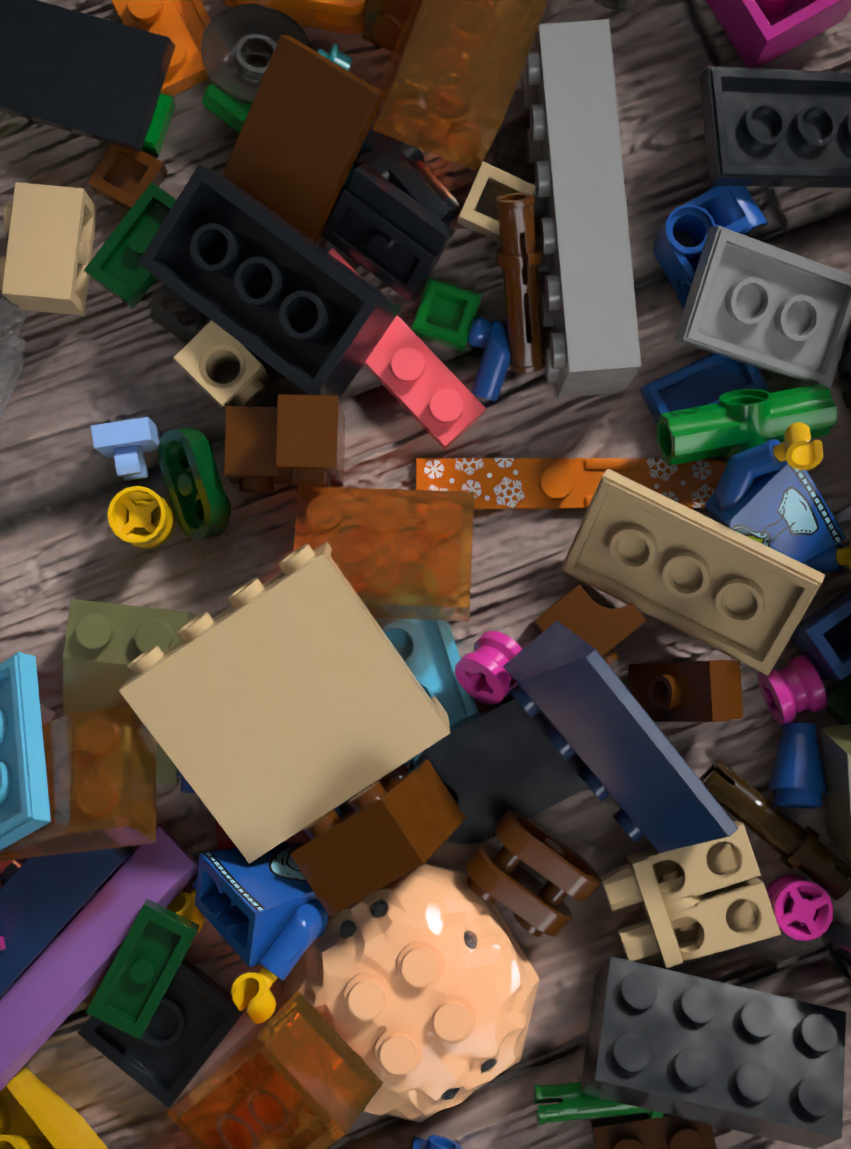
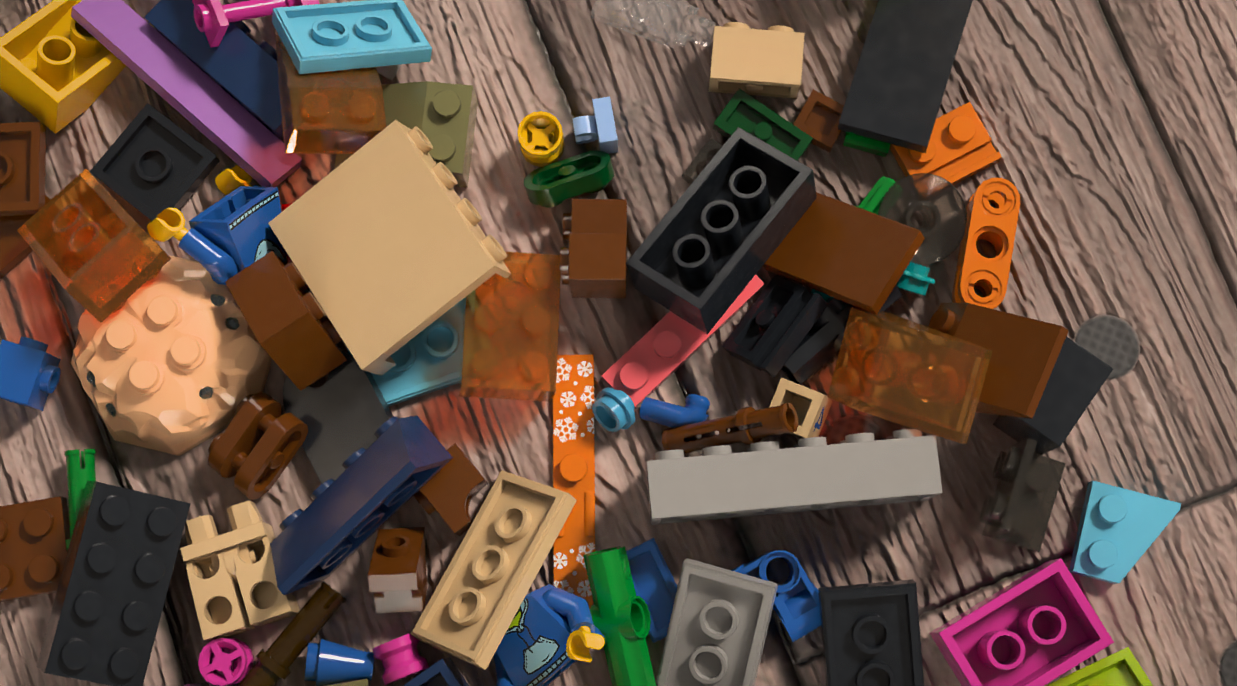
camera: 95 degrees right, 5 degrees down
(143, 969) = (192, 148): dark green plate -> none
(209, 350) = (663, 179): tan brick -> none
(446, 314) = (713, 377): green tile -> none
(483, 672) = (418, 402): dark pink wheel -> none
(488, 430) = (614, 409): none -> dark azure plate

